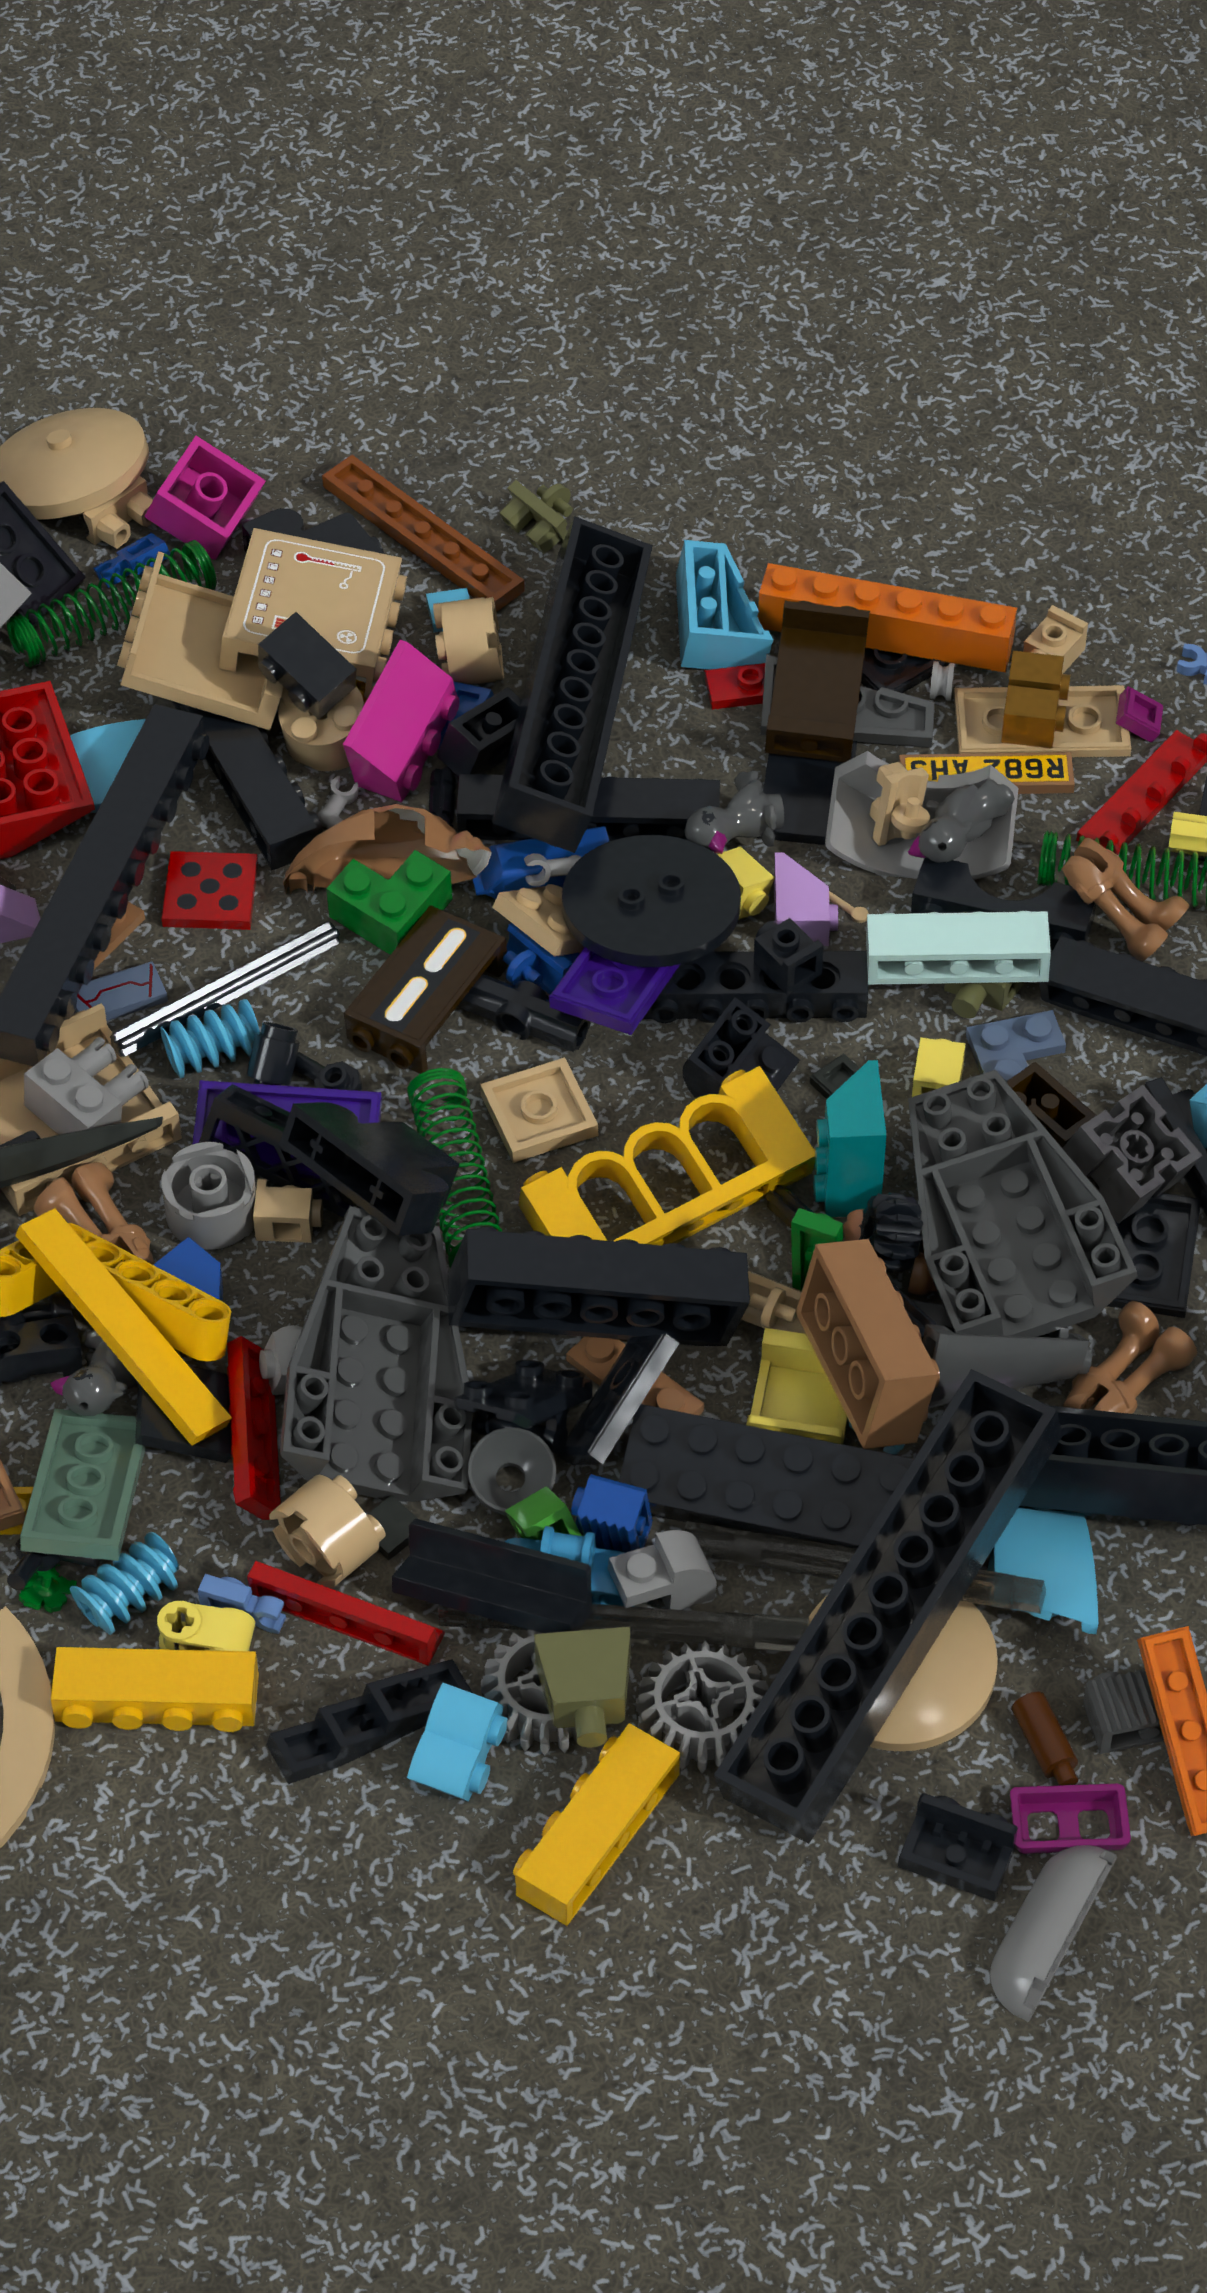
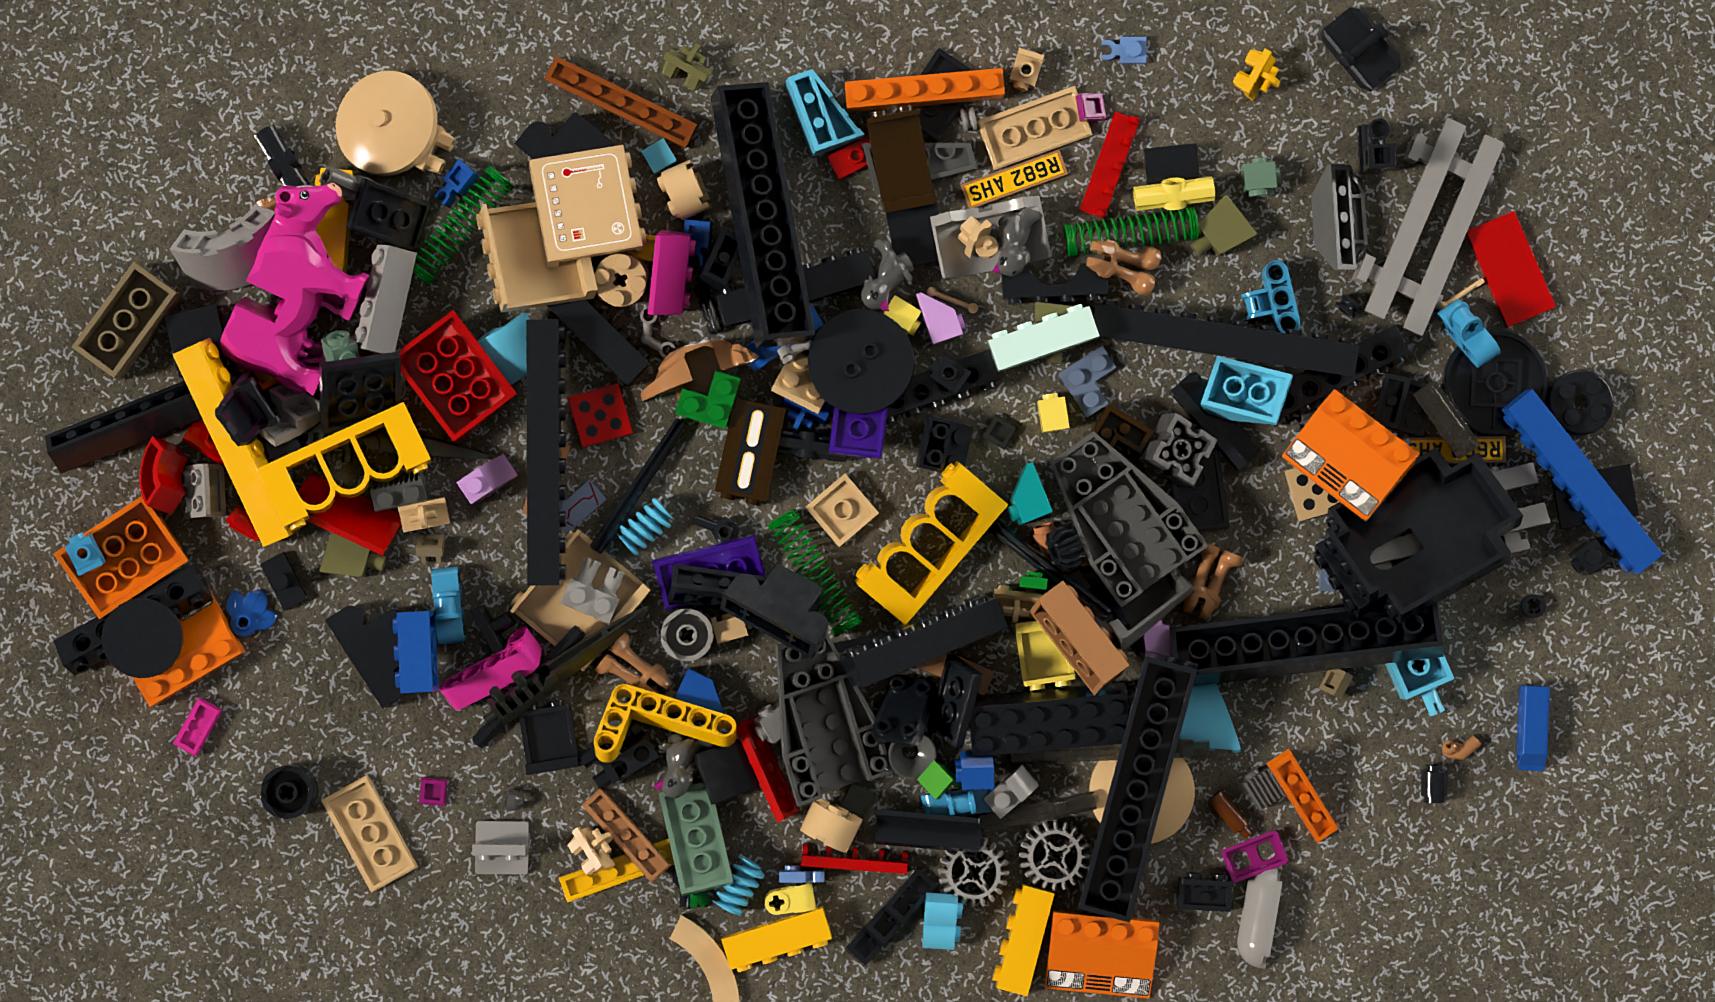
camera: 20 degrees left, 35 degrees up
(123, 1326) = (679, 746): yellow tile -> none
(205, 497) = (484, 130): dark pink brick -> none
(273, 1054) = (685, 528): black brick -> none
(306, 666) = (606, 269): black brick -> none
(585, 1679) = (997, 877): olive torso -> none
(731, 1890) = (1101, 954): none -> orange slope
(1033, 699) = (1029, 126): pearl gold piece -> none

